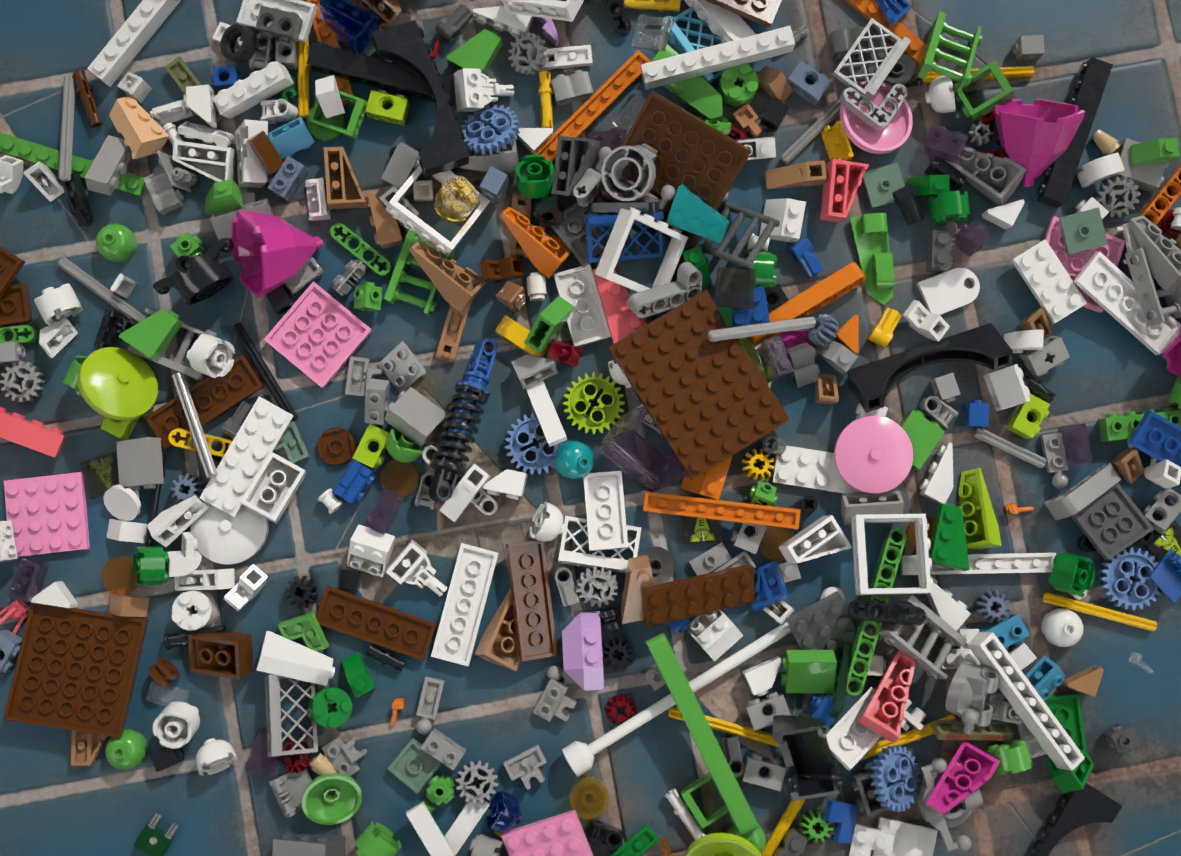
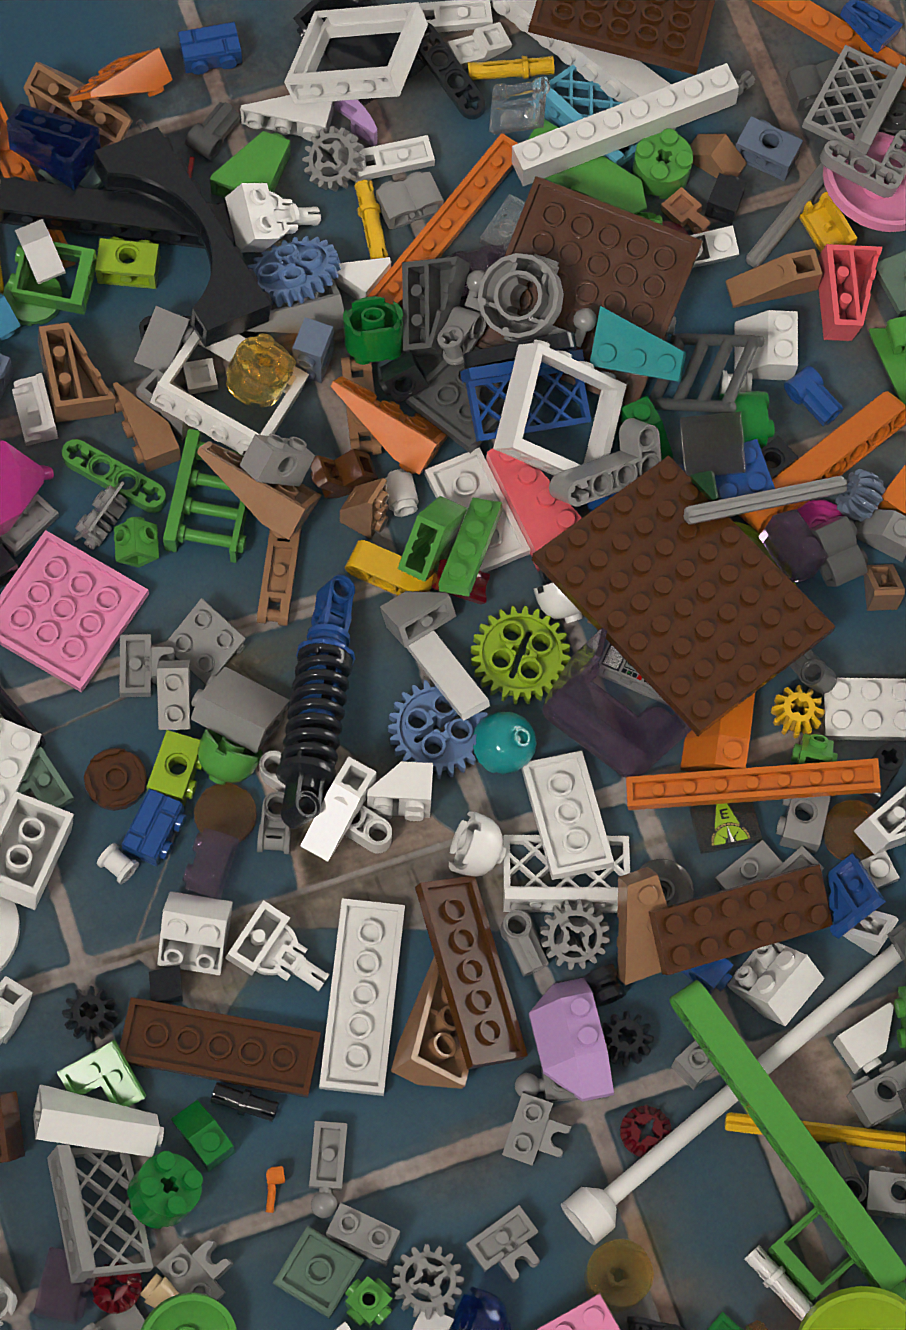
camera: 10 degrees left, 15 degrees down
(459, 260) = (277, 460): none -> light grey brick
(572, 333) = (470, 547): none -> bright green plate

